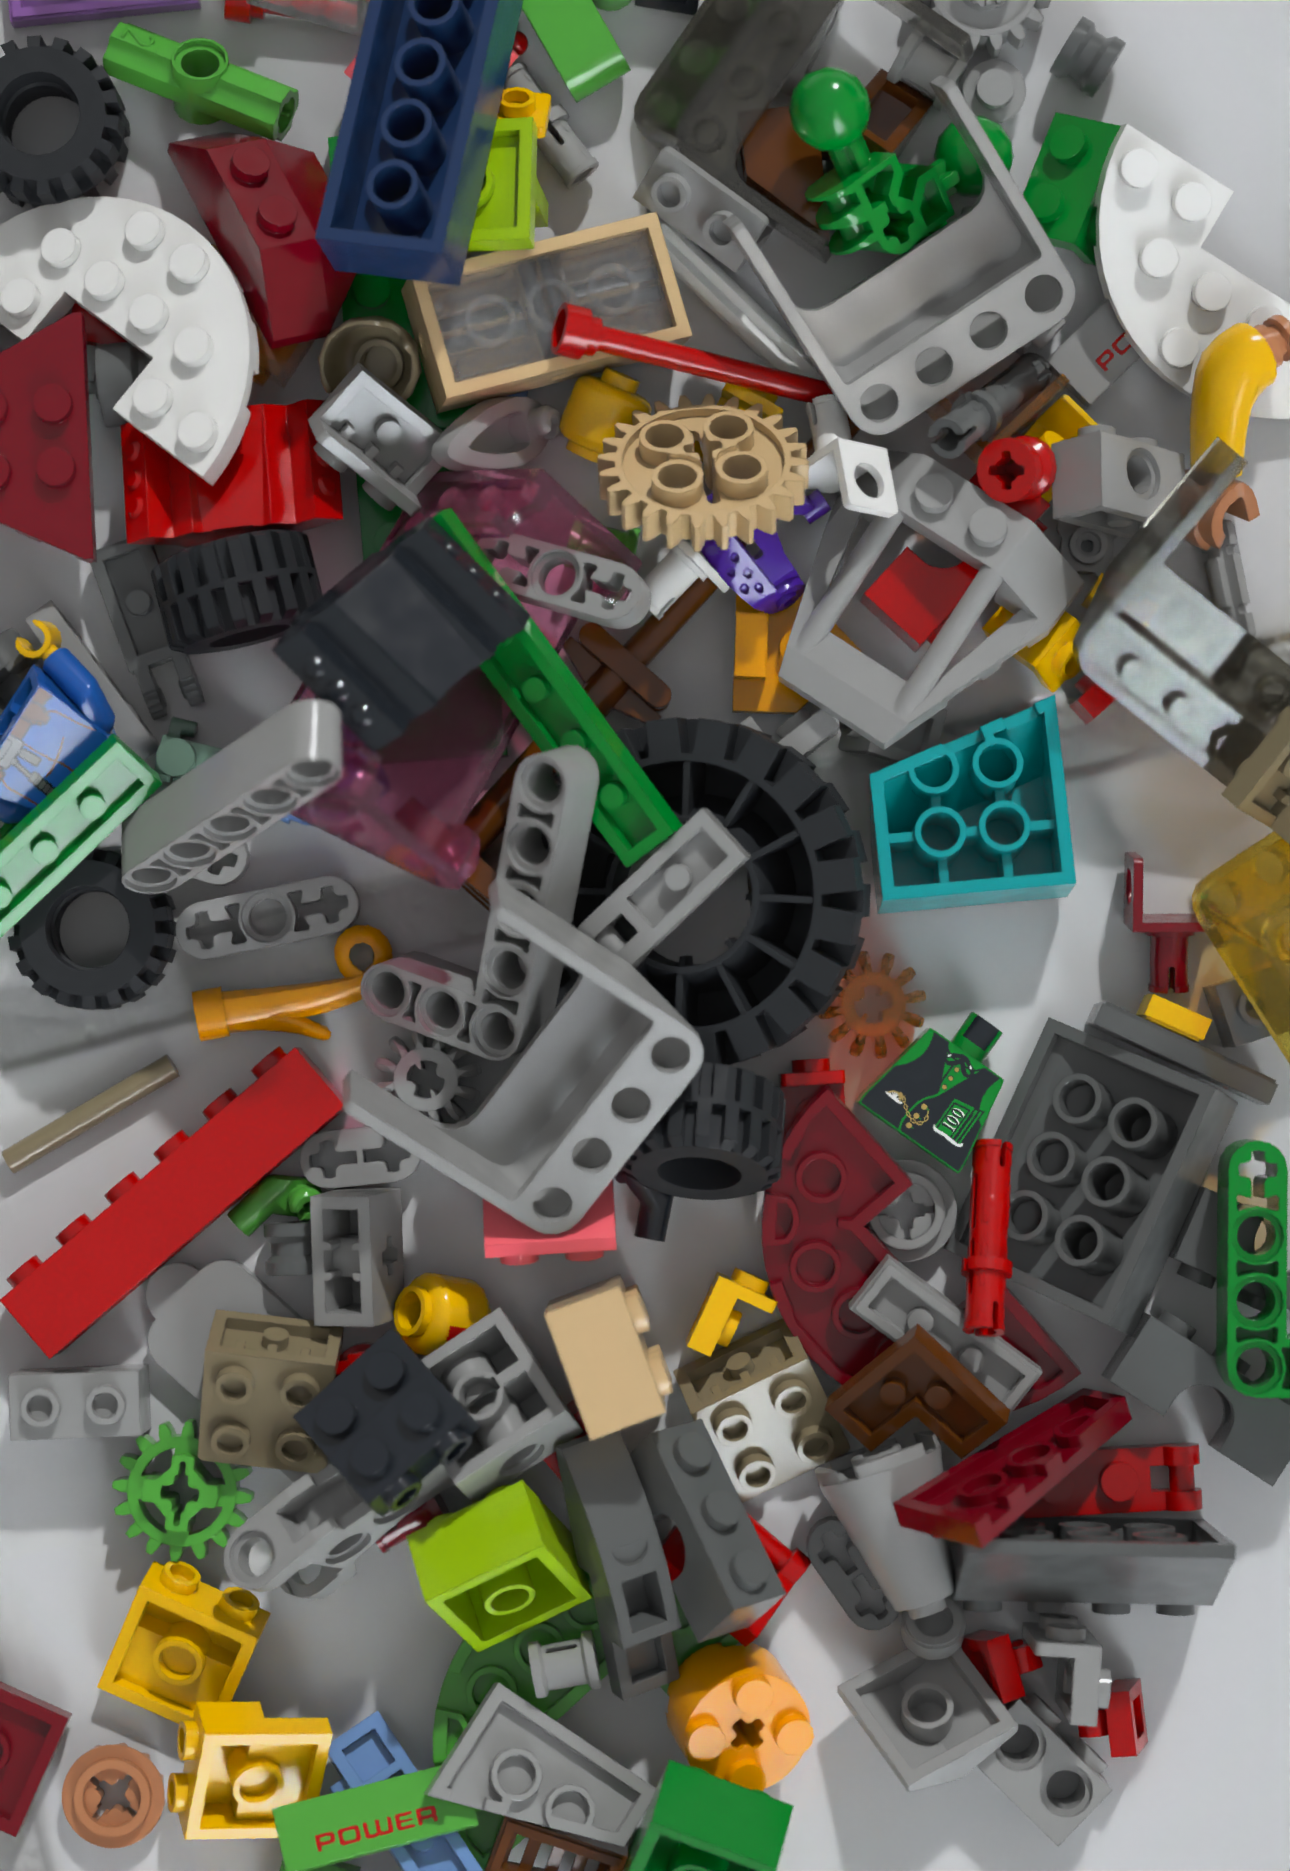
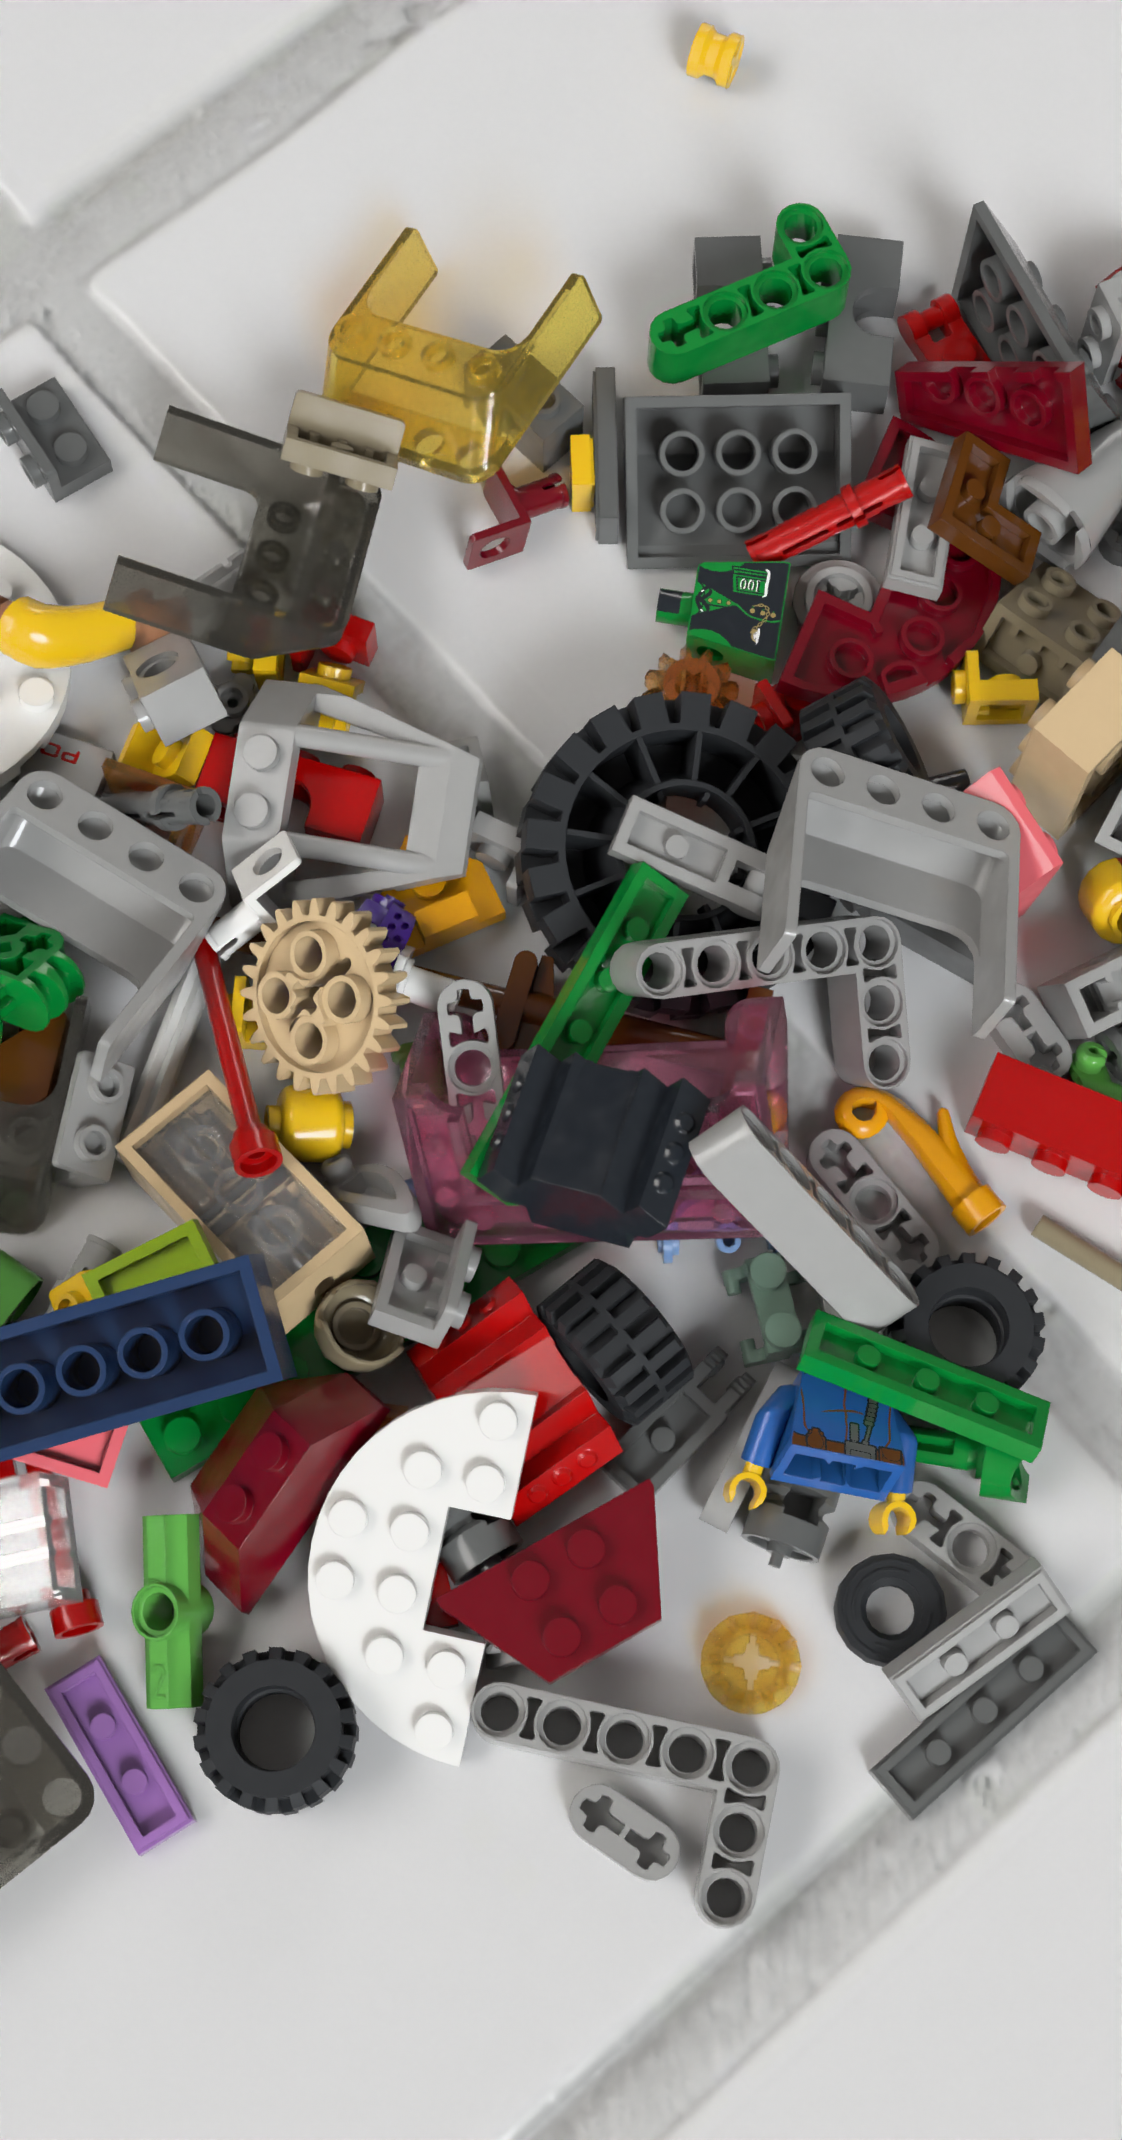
camera: 115 degrees left, 15 degrees down
(447, 1069) = (951, 992): light grey gear -> none
(975, 819) = (498, 674): teal wedge -> none
(1032, 467) = (188, 760): red wheel -> none

